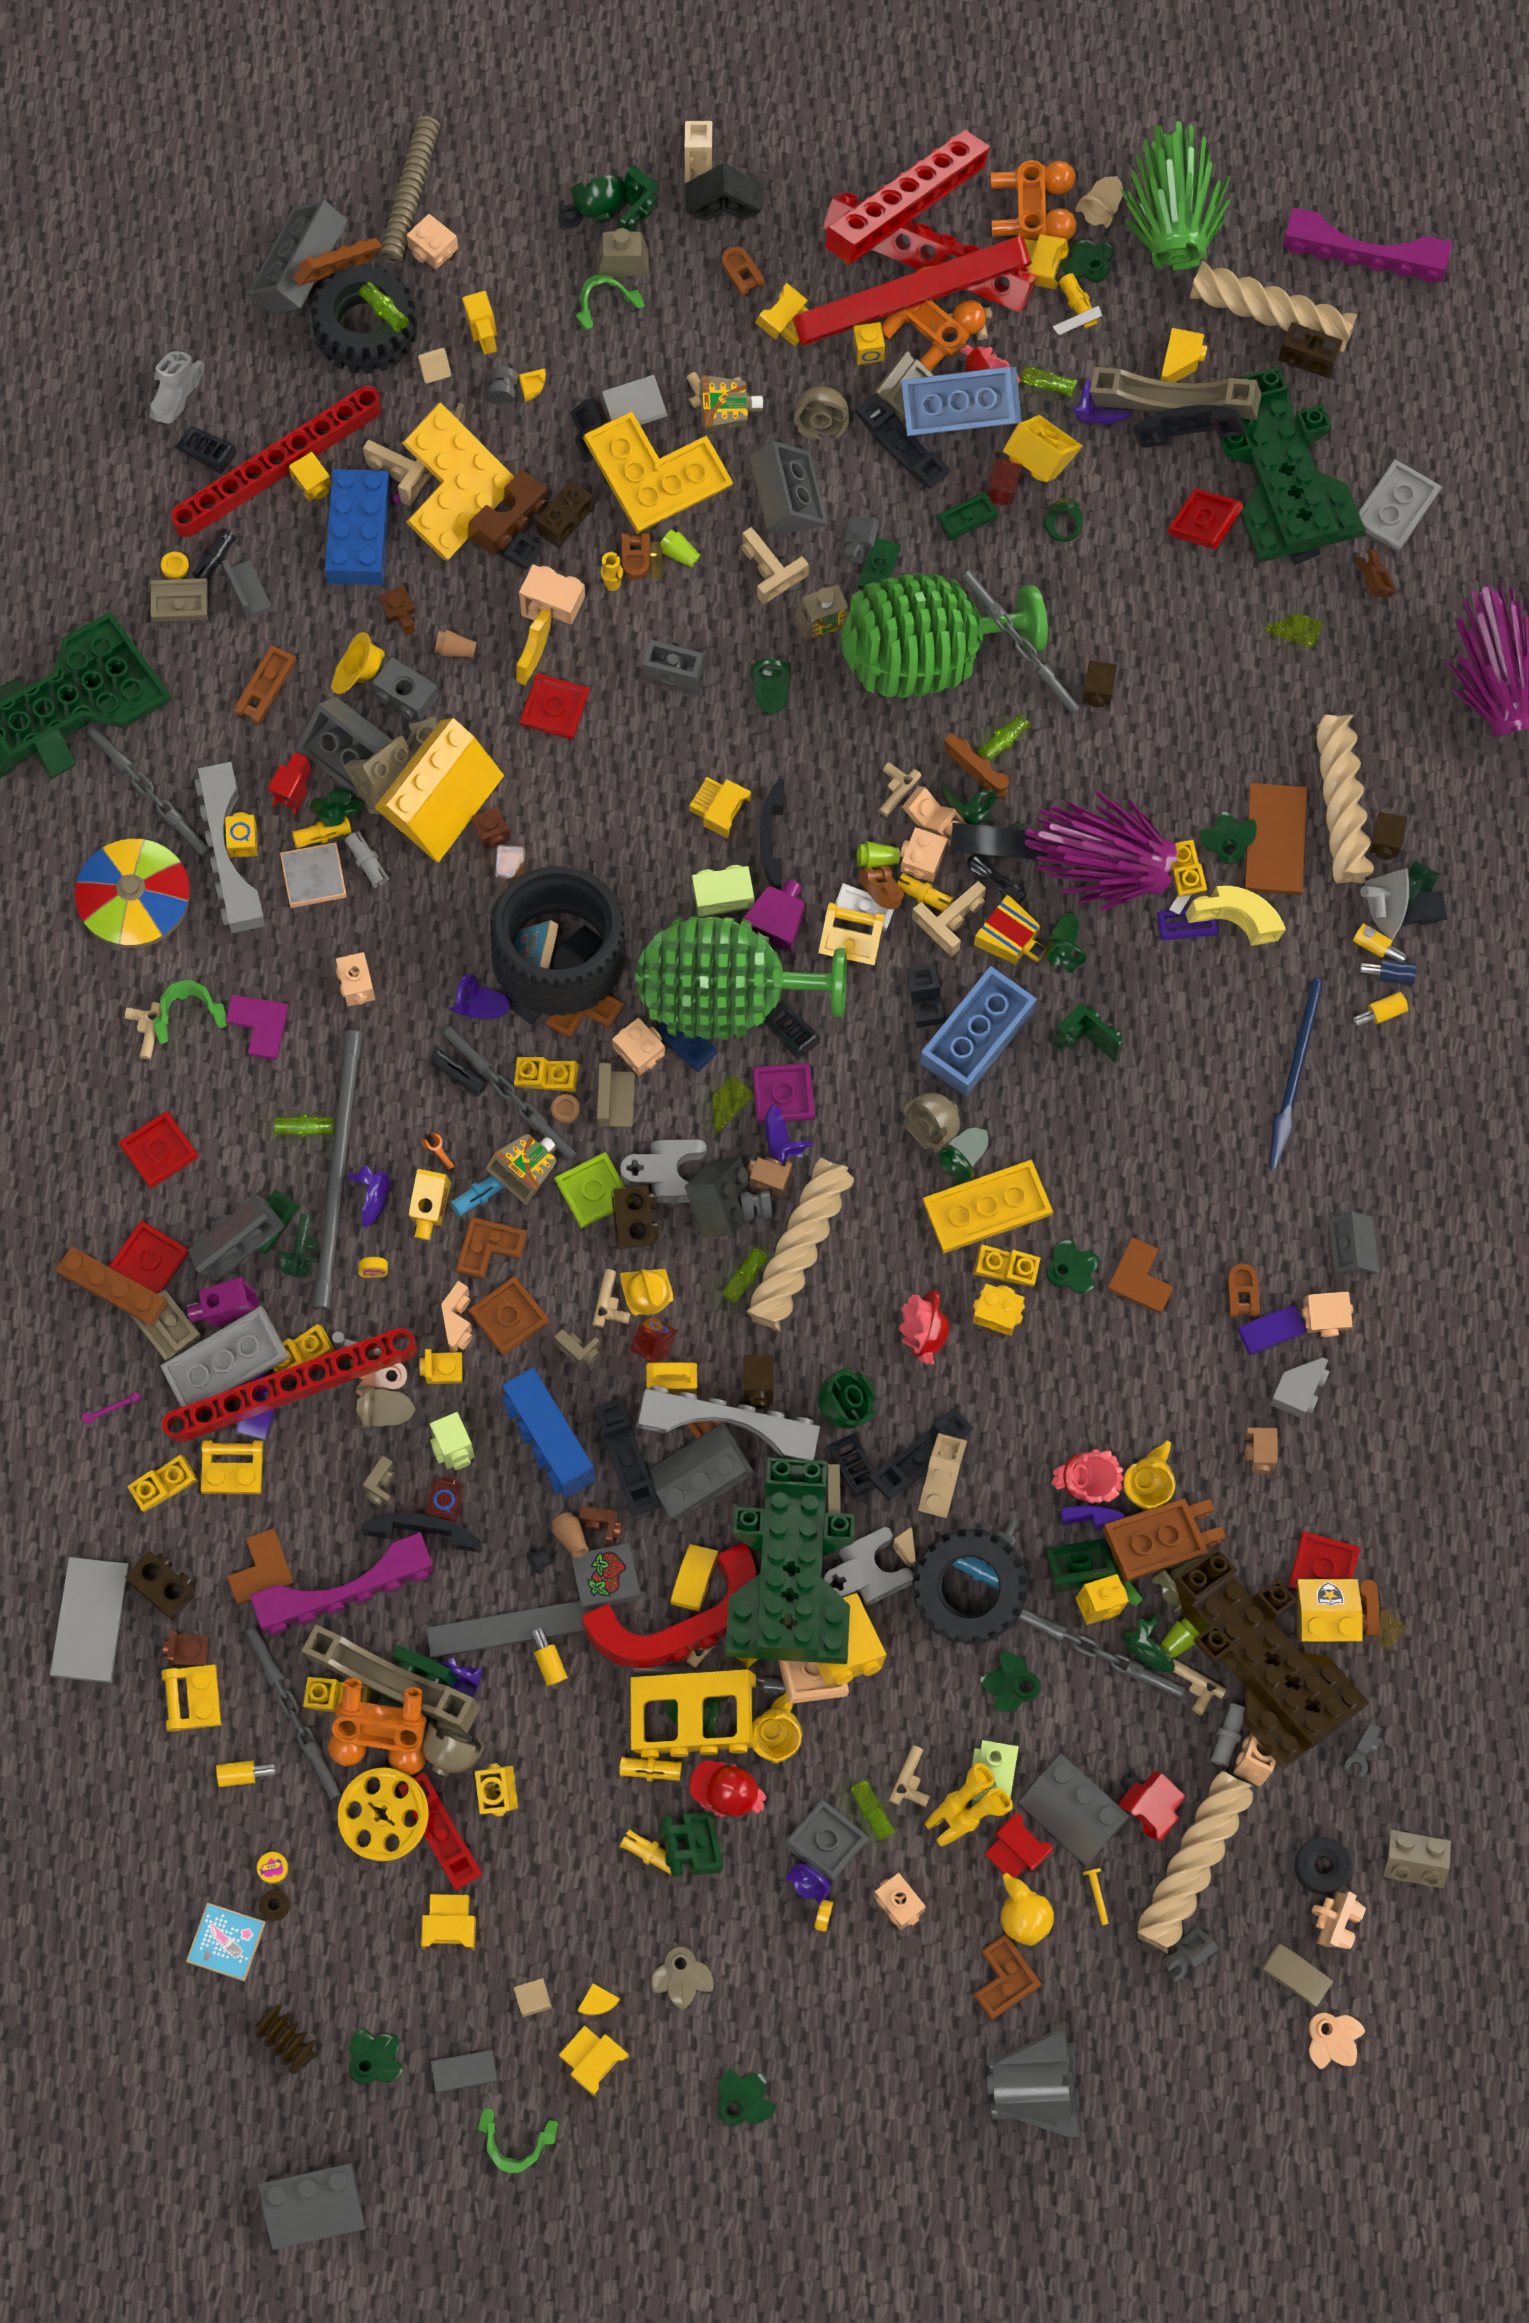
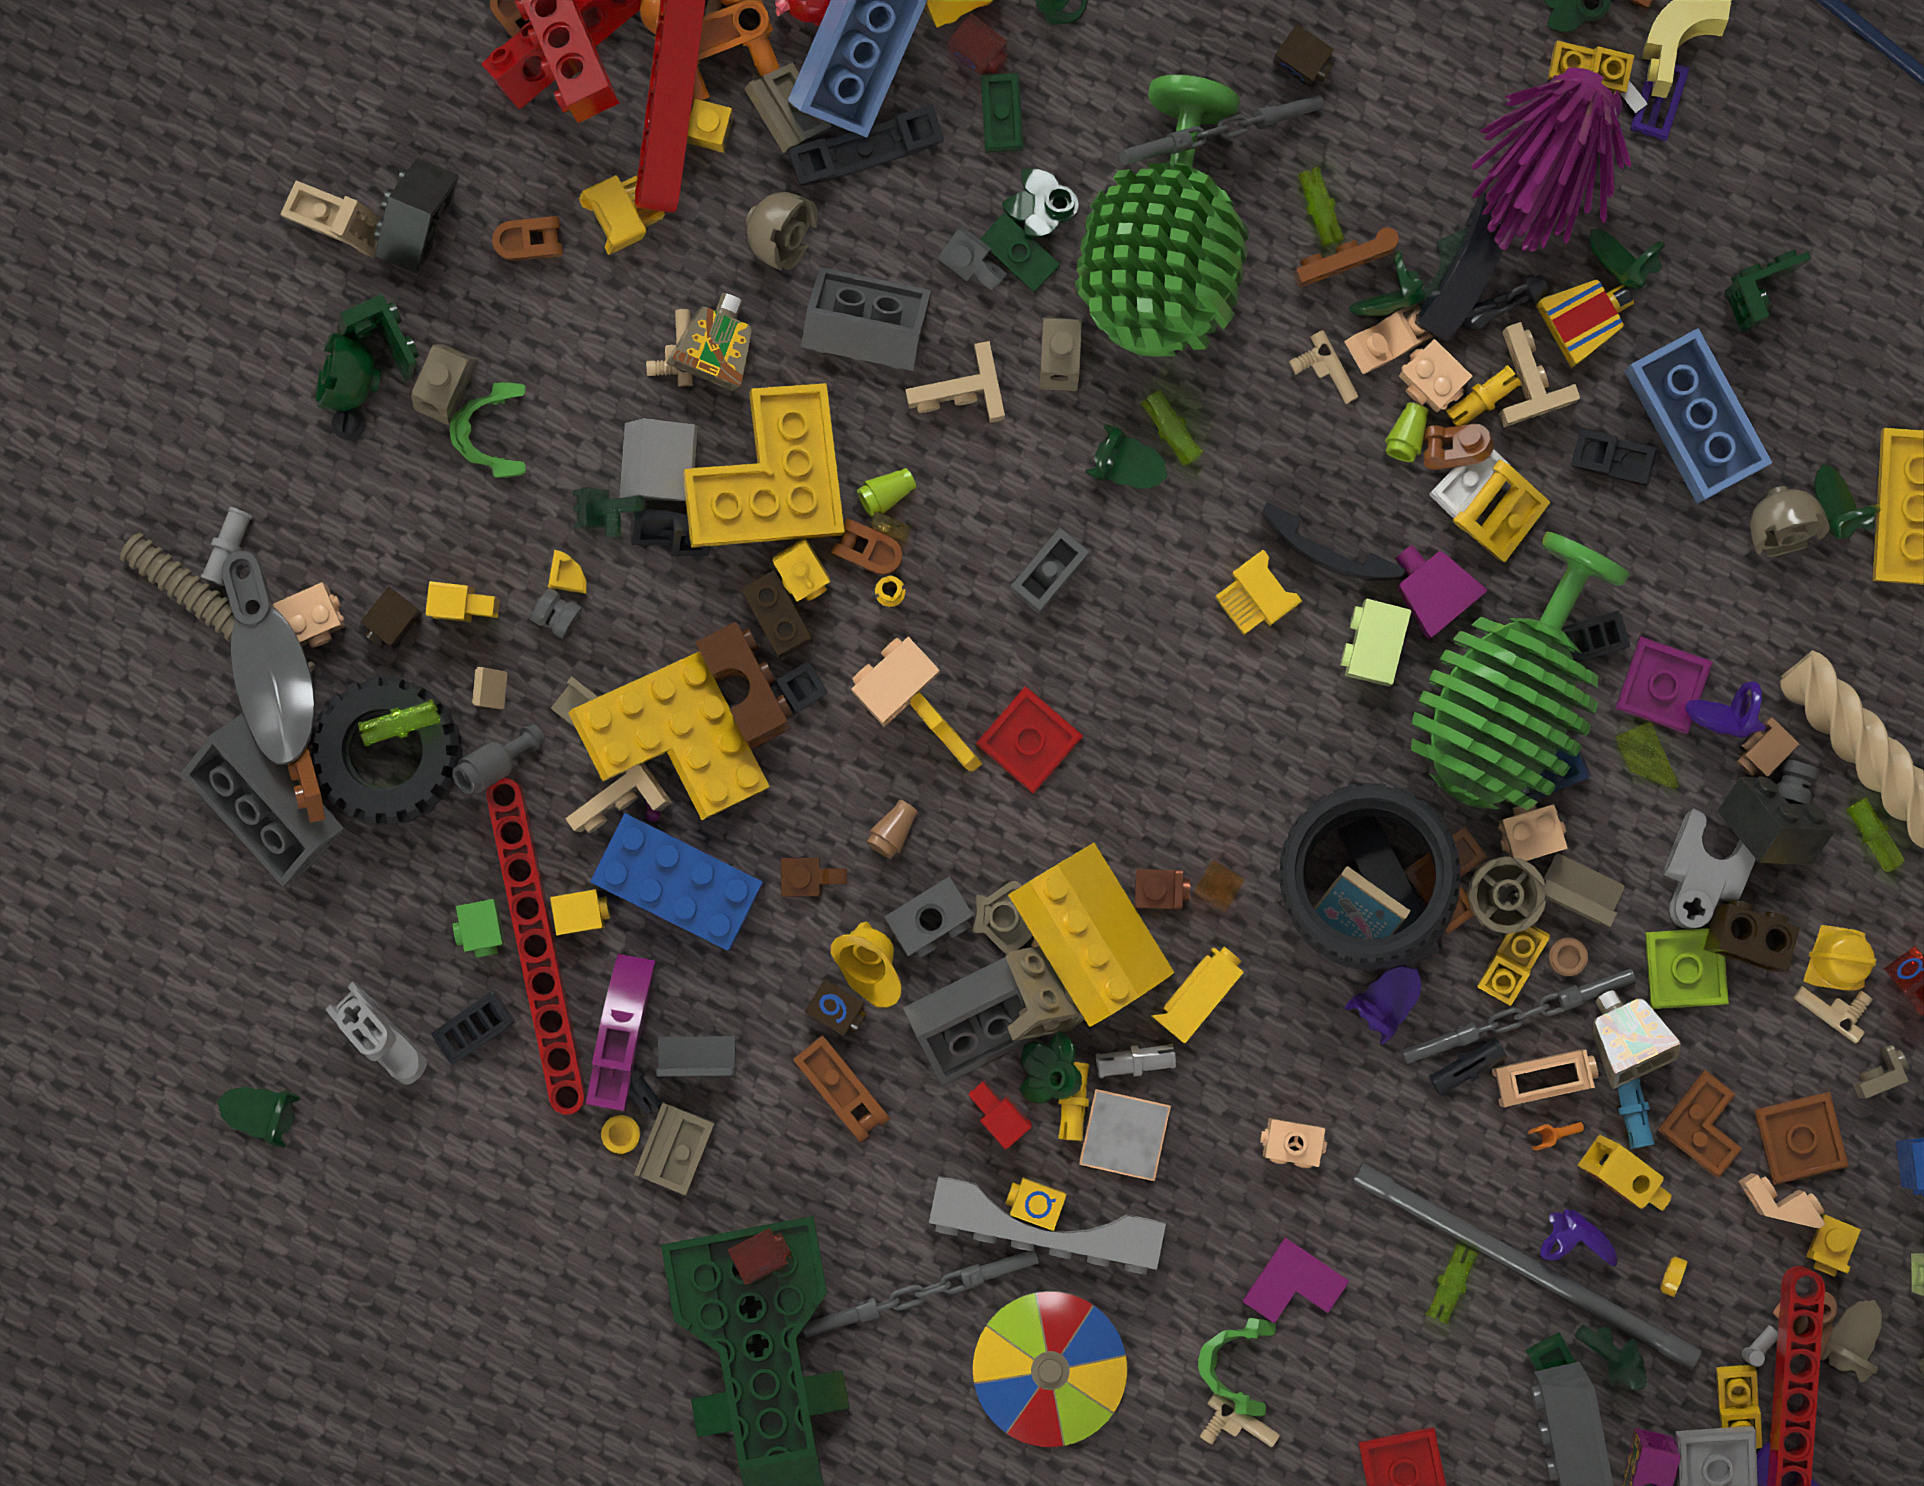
camera: 65 degrees left, 15 degrees up
(92, 344) = (259, 1112): none -> dark green piece
(127, 667) = (760, 1256): none -> clear red brick
(242, 527) = (620, 1032): none -> magenta slope
(273, 422) = (479, 928): none -> bright green brick
(317, 657) = (836, 1008): none -> dark brown brick
(385, 381) = (494, 761): none -> dark grey piece
(390, 221) = (268, 665): none -> dark grey plant
(430, 879) = (1200, 993): none -> yellow window
(451, 288) = (390, 619): none -> dark brown brick
(454, 178) = (226, 544): none -> light grey pin
(485, 1148) = (1585, 1069): none -> light nougat window
(582, 382) = (598, 511): none -> clear green arm
(587, 1039) = (1507, 895): none -> dark tan cylinder
(600, 514) = (801, 571): none -> yellow head
(807, 706) = (1172, 428): none -> clear neon green pin
(915, 562) = (1036, 203): none -> plate

